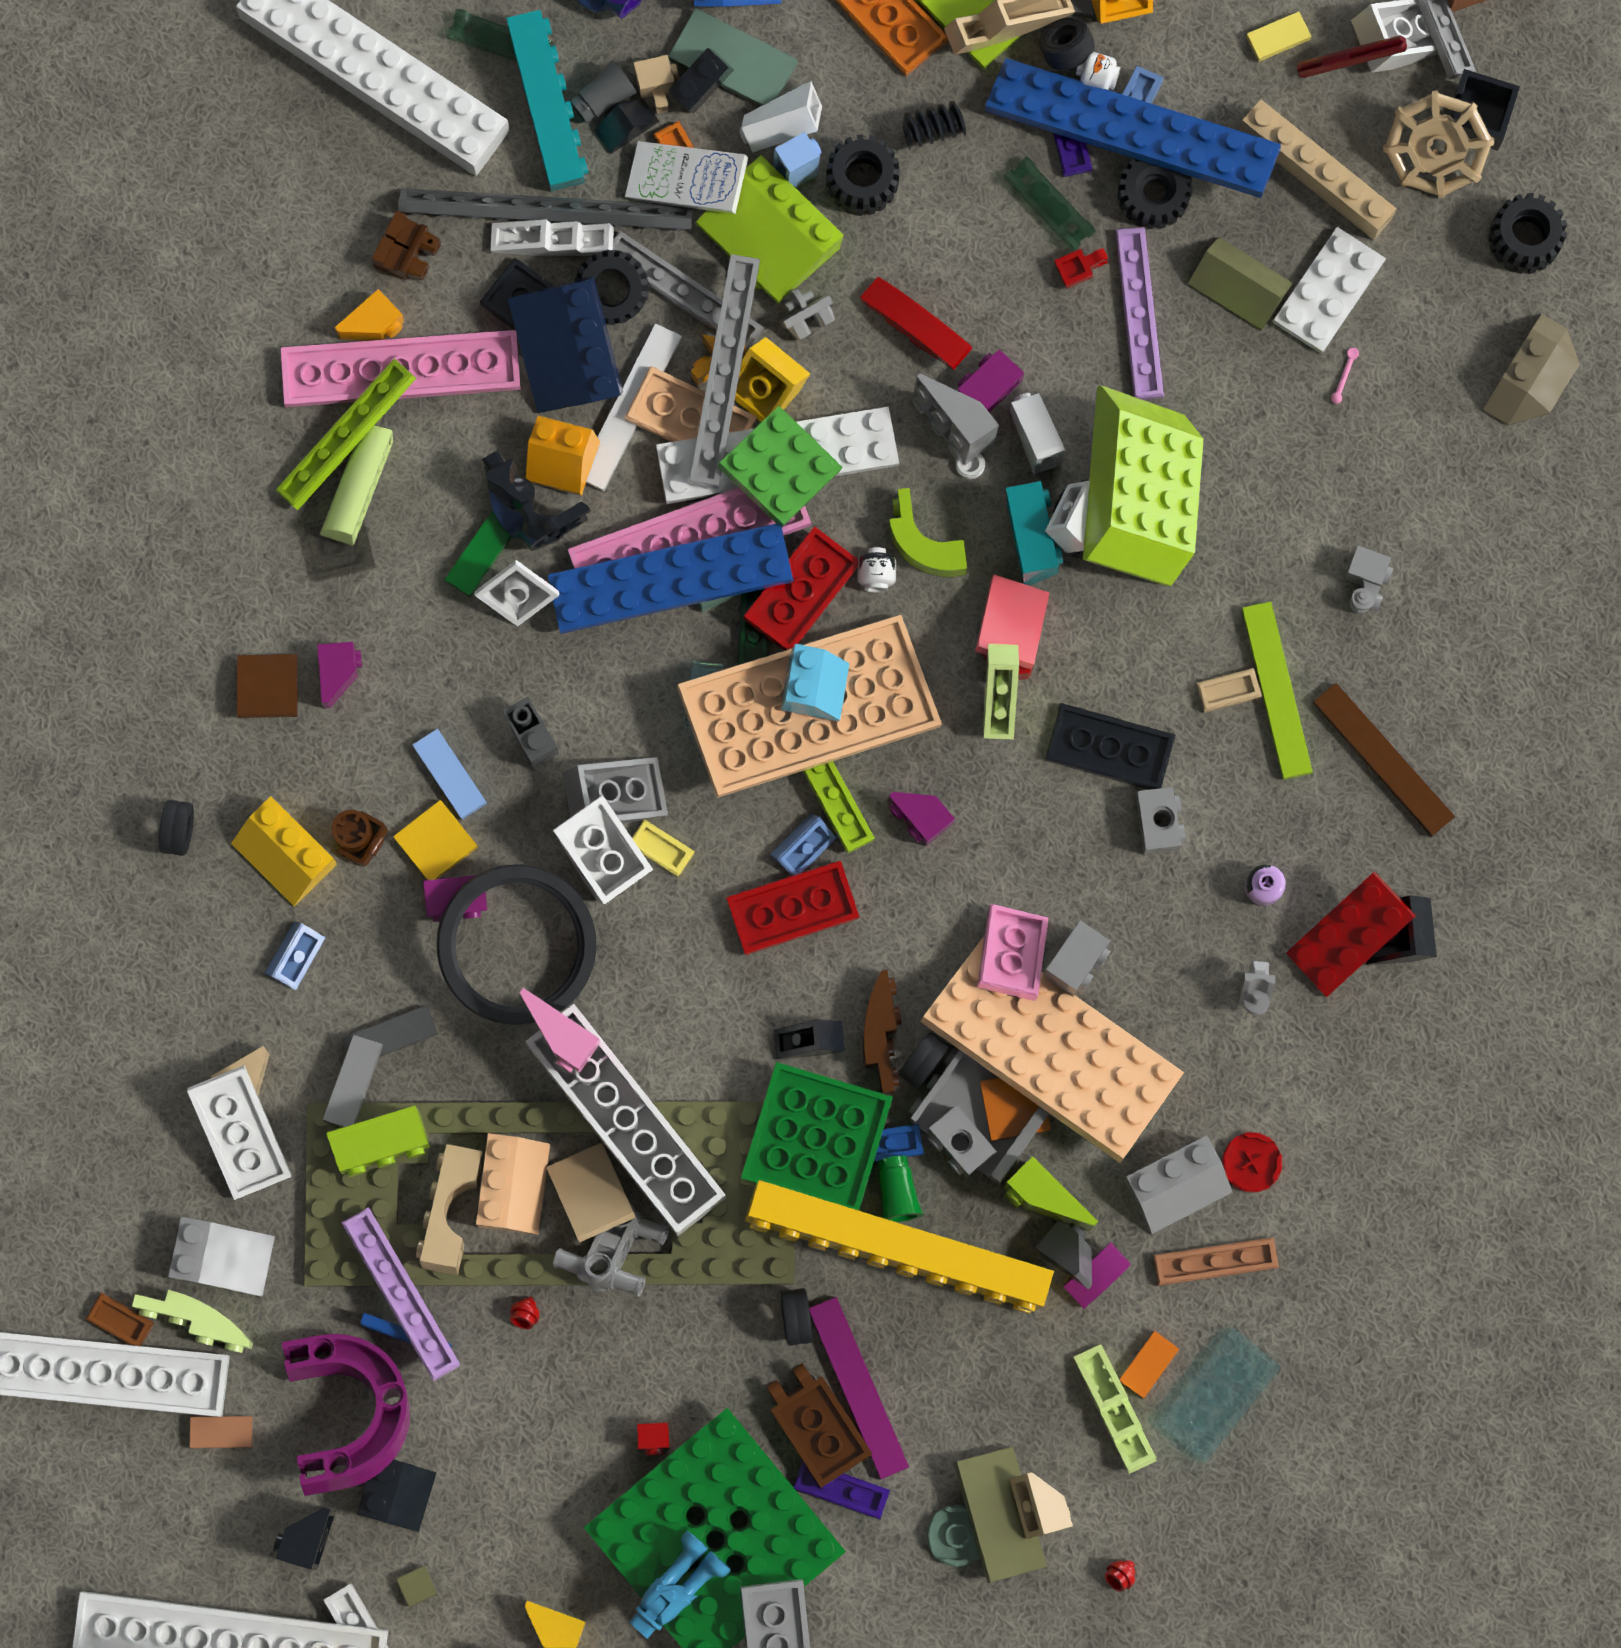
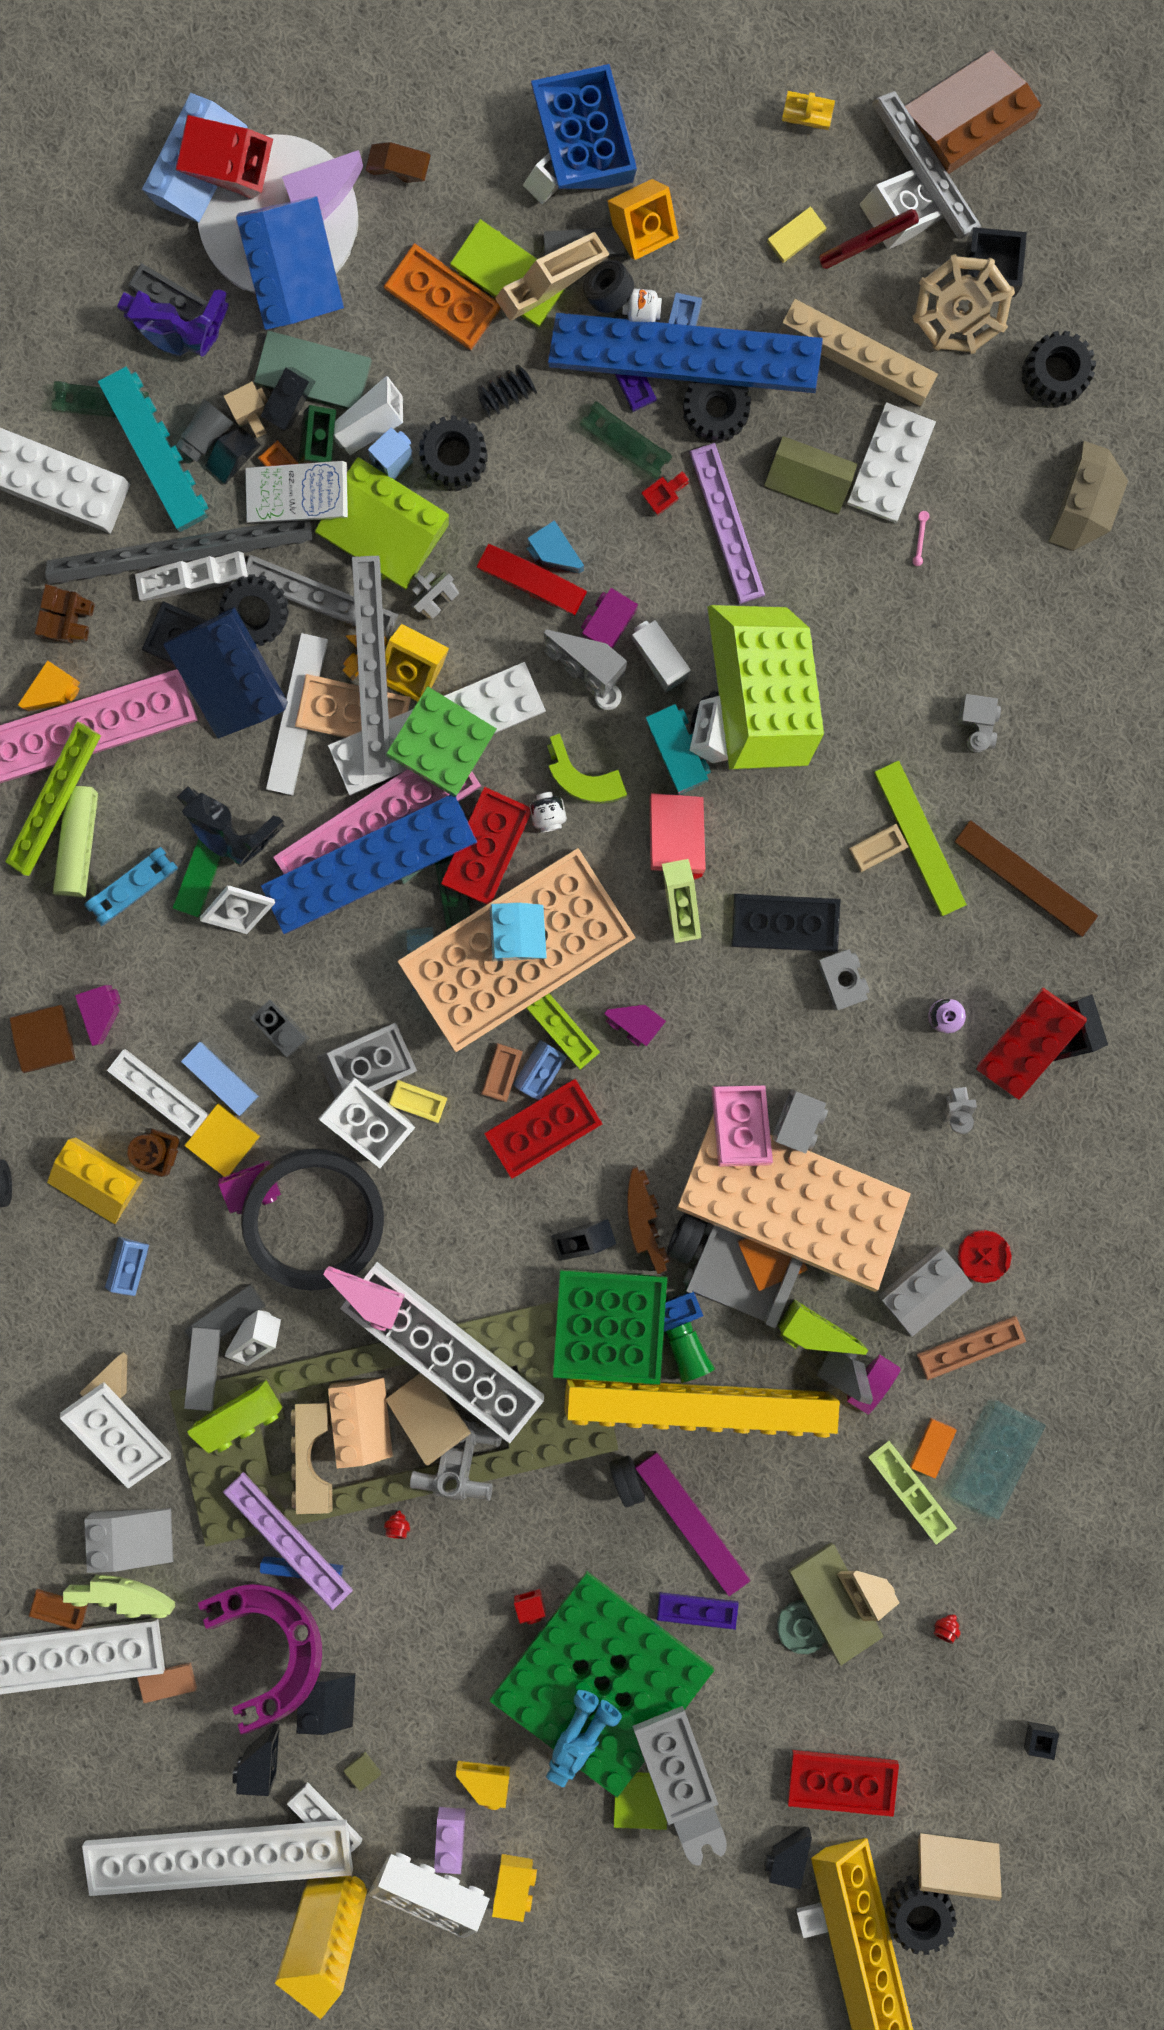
camera: 10 degrees left, 10 degrees up
(378, 772) = (157, 1092): none -> white plate
(405, 546) = (131, 886): none -> dark azure plate
(417, 1063) = (254, 1338): none -> white slope
(560, 455) = (246, 774): light orange slope -> none
(722, 123) = (317, 435): none -> dark green brick
(761, 838) = (502, 1072): none -> nougat tile
(818, 1427) = (666, 1567): reddish brown tile -> none
(947, 298) = (553, 549): none -> dark azure slope
(958, 1124) = (725, 1285): light grey brick -> none

